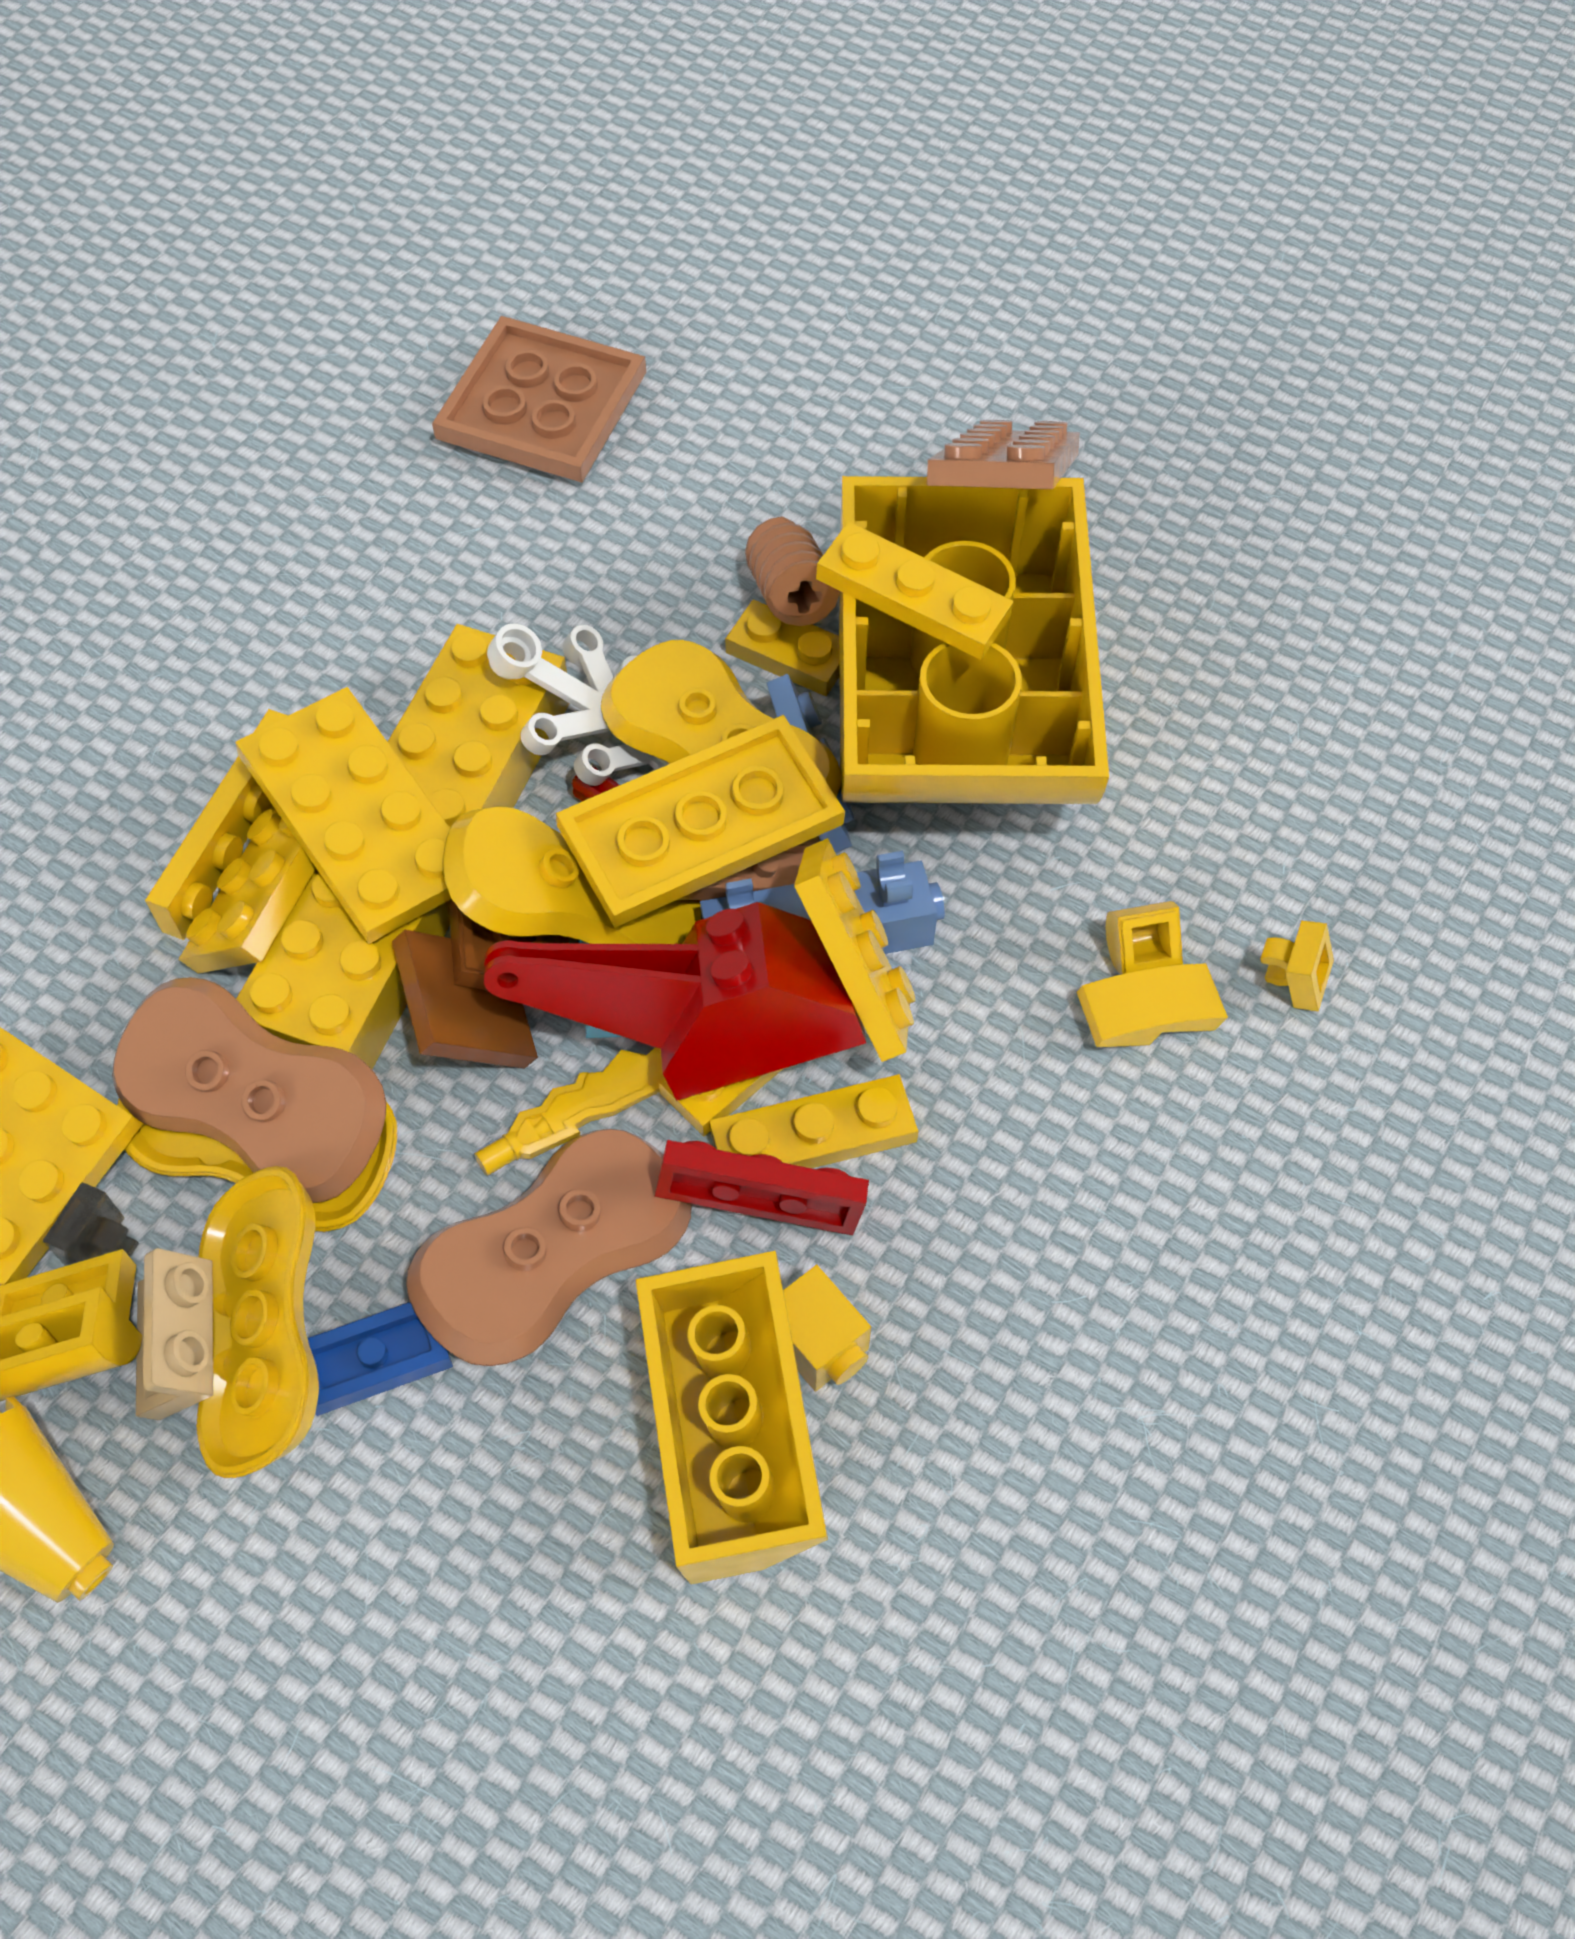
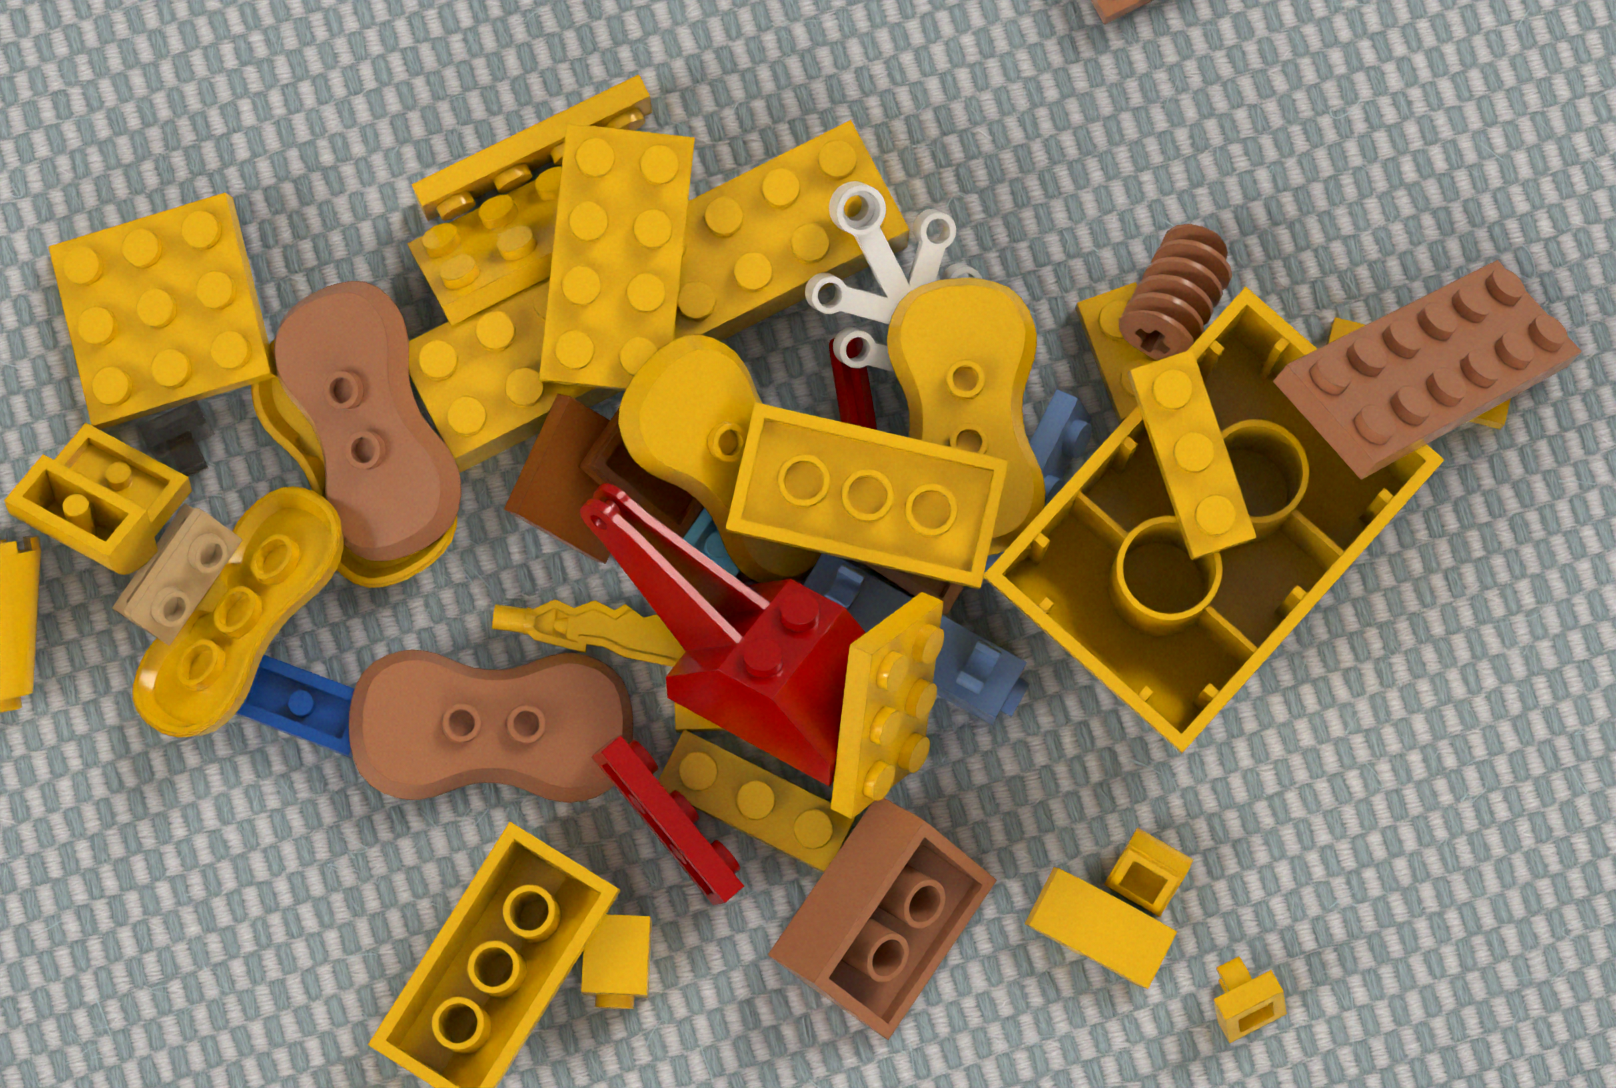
camera: 40 degrees right, 20 degrees up
(989, 1126) = (883, 916): none -> nougat slope

